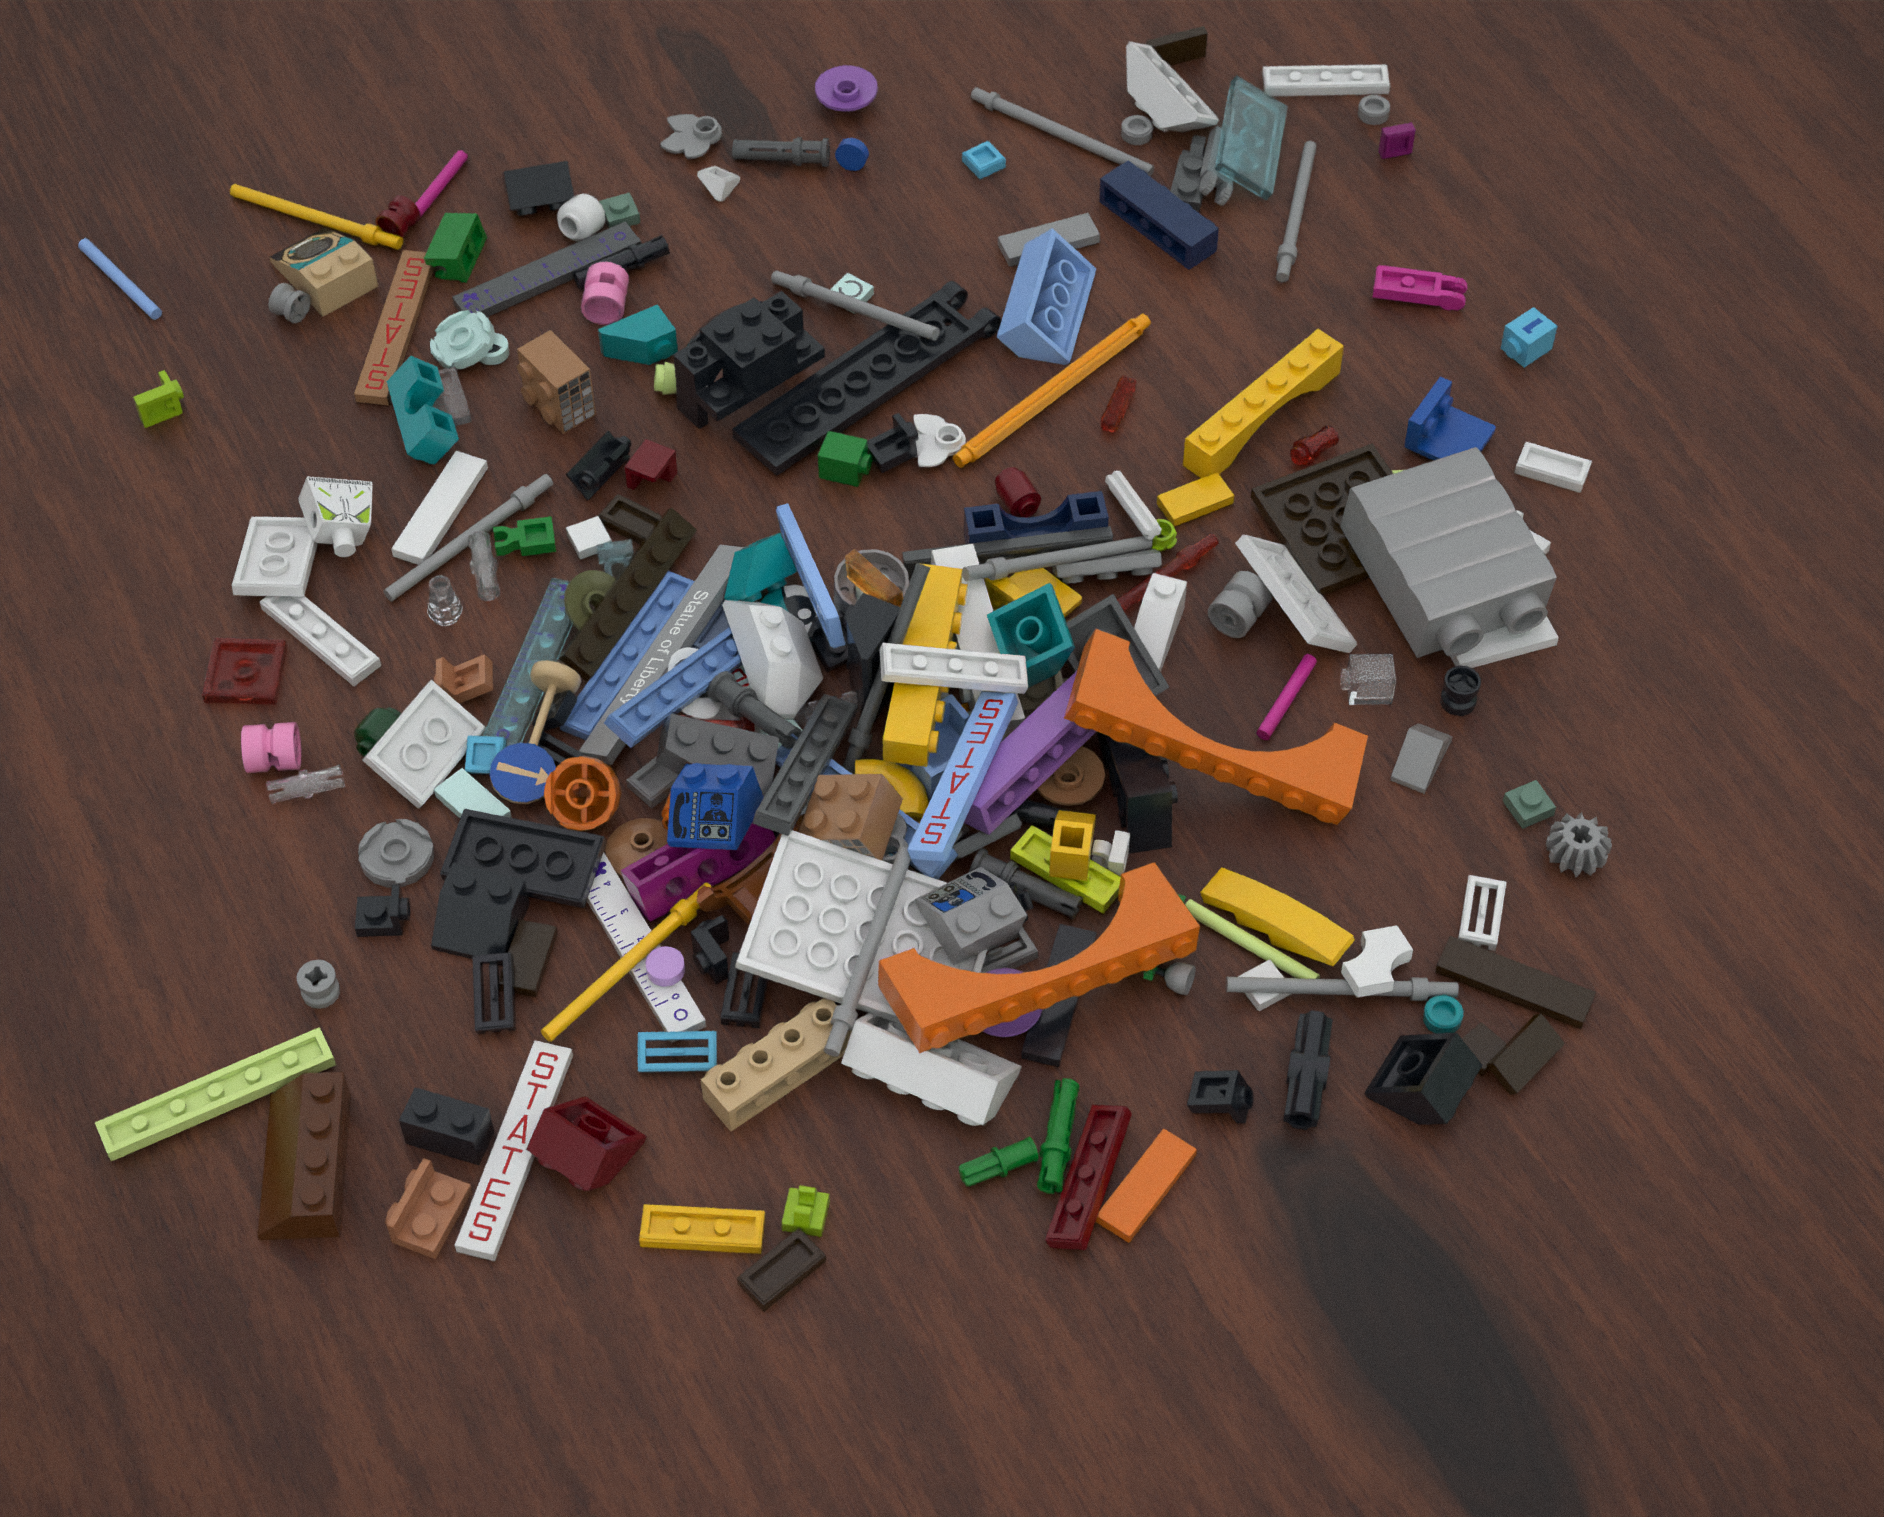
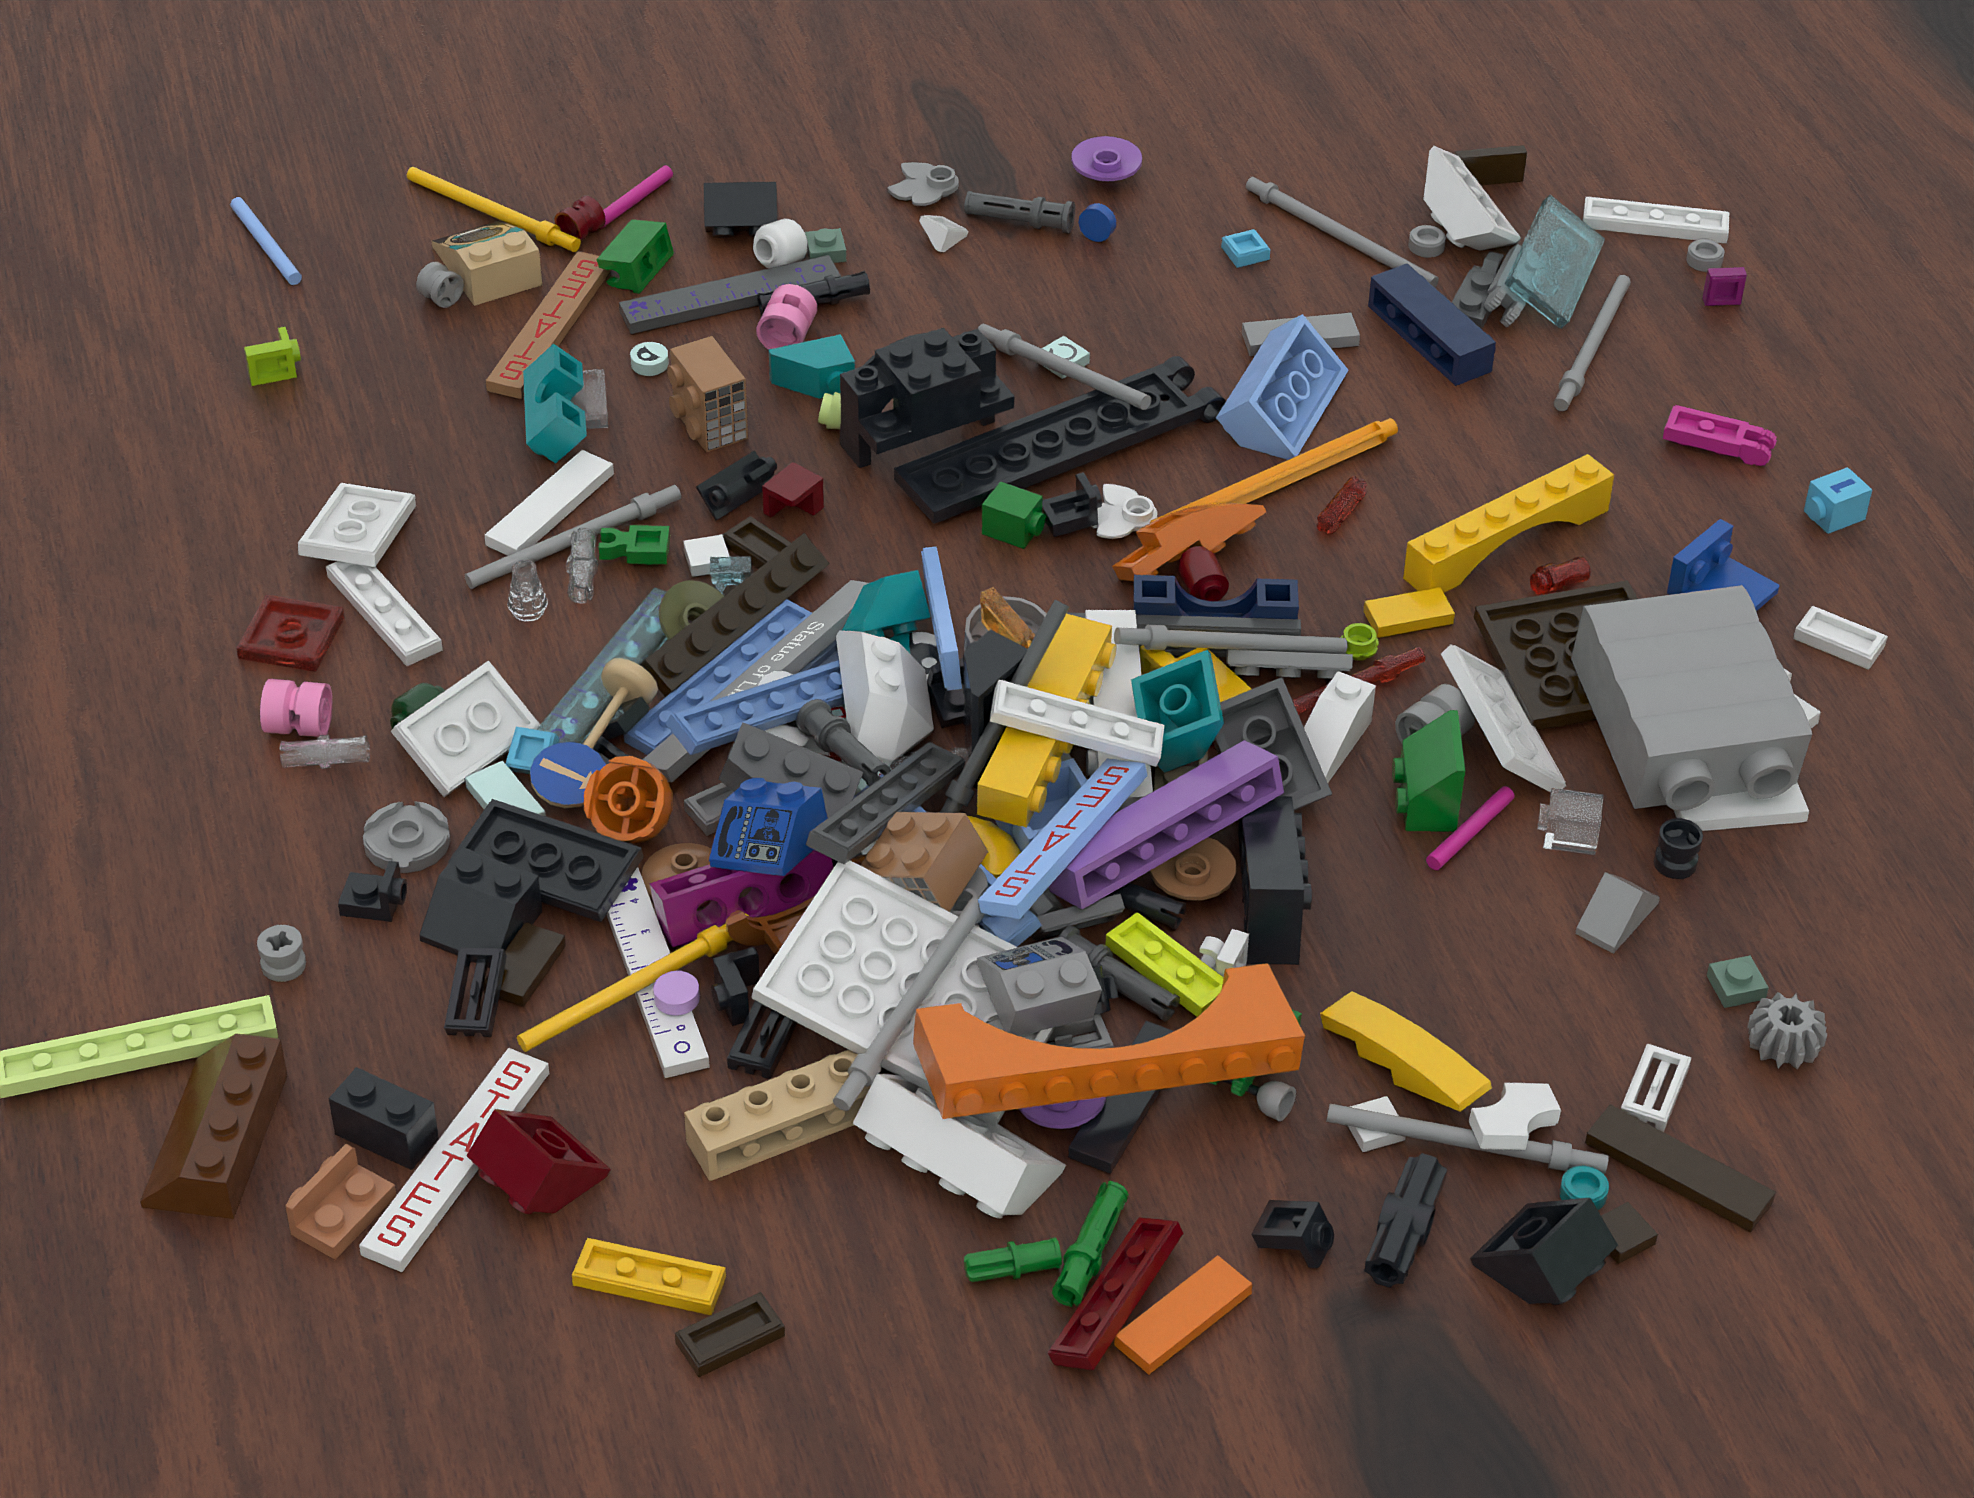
camera: 10 degrees right, 10 degrees down
(337, 512) = (433, 487): white torso -> none
(462, 339) = (618, 343): light aqua tile -> none
(466, 679) = (531, 674): nougat bracket -> none
(710, 1051) = (706, 1091): medium azure tile -> none
(806, 1211) = (774, 1275): lime tile -> none
(997, 450) = (1181, 530): none -> orange slope
(1071, 845) = (1175, 935): yellow slope -> none
(1118, 703) = (1474, 908): orange arch -> none
(1133, 505) = (1333, 605): white axle -> none
(1248, 657) = (1431, 776): none -> green slope
(1249, 942) = (1365, 1074): yellowish green bar -> none
(1525, 1054) = (1675, 1244): dark brown tile -> none

